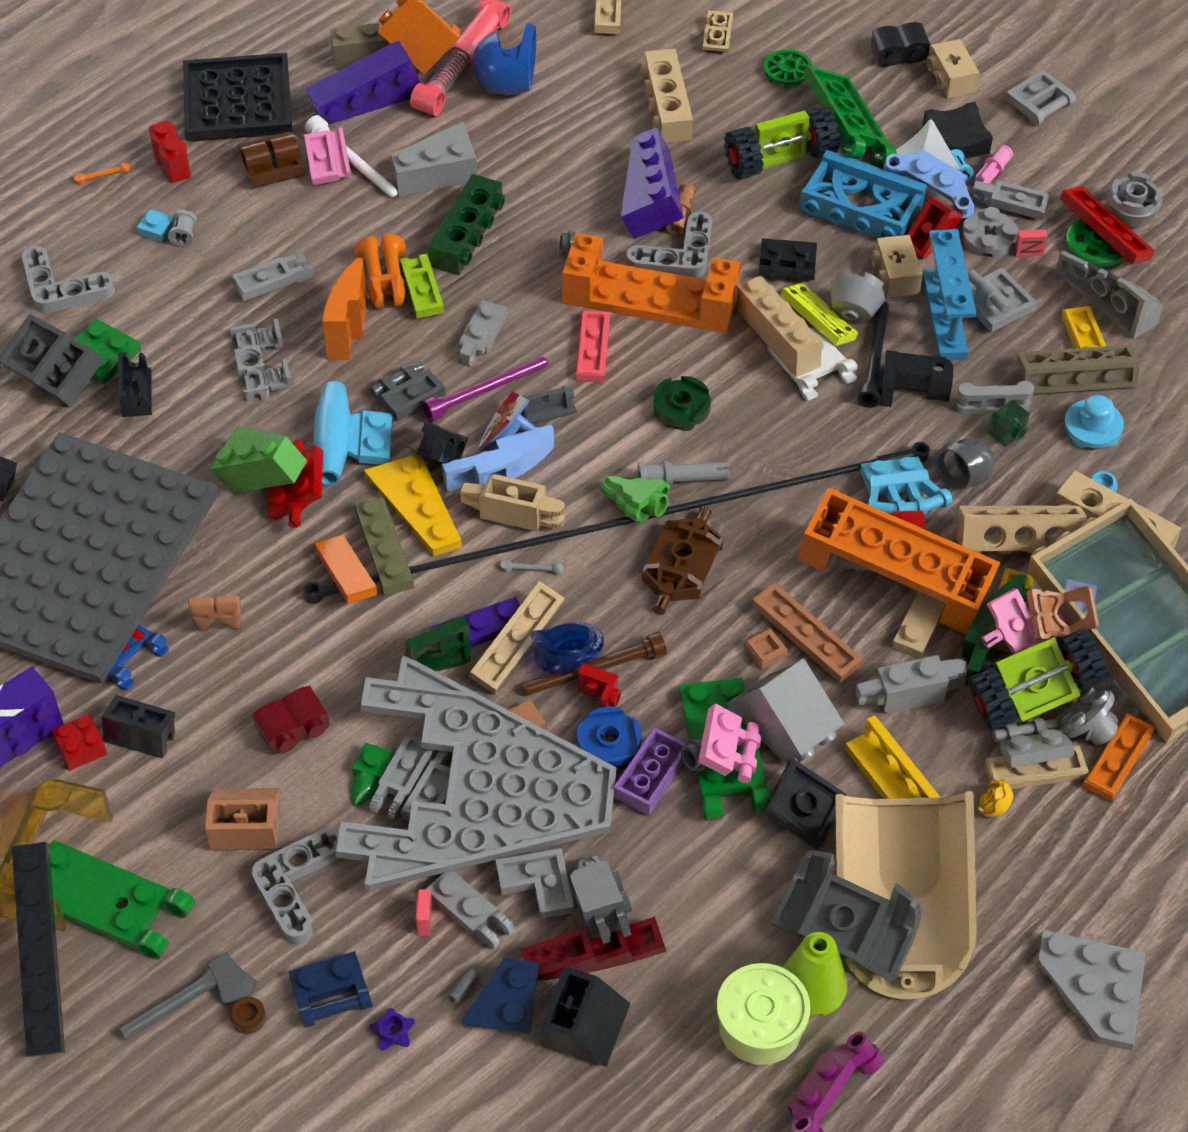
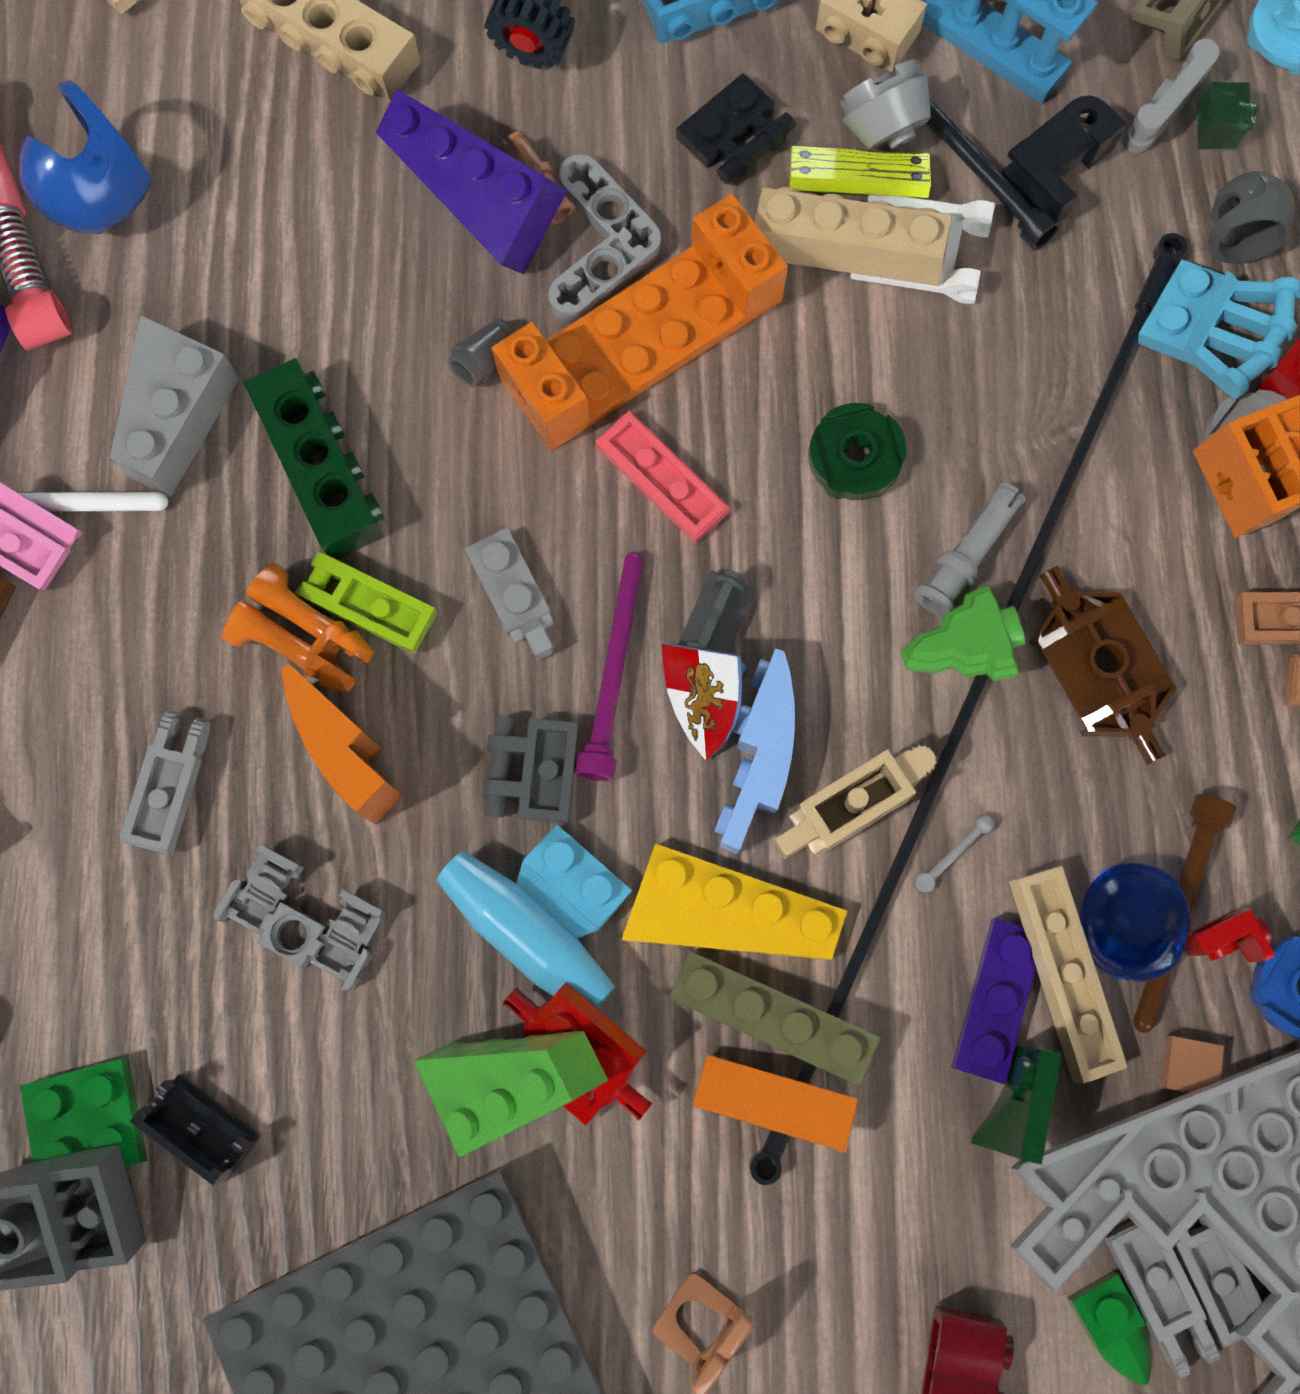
camera: 45 degrees left, 25 degrees up
(440, 443) = (675, 820): black piece -> none

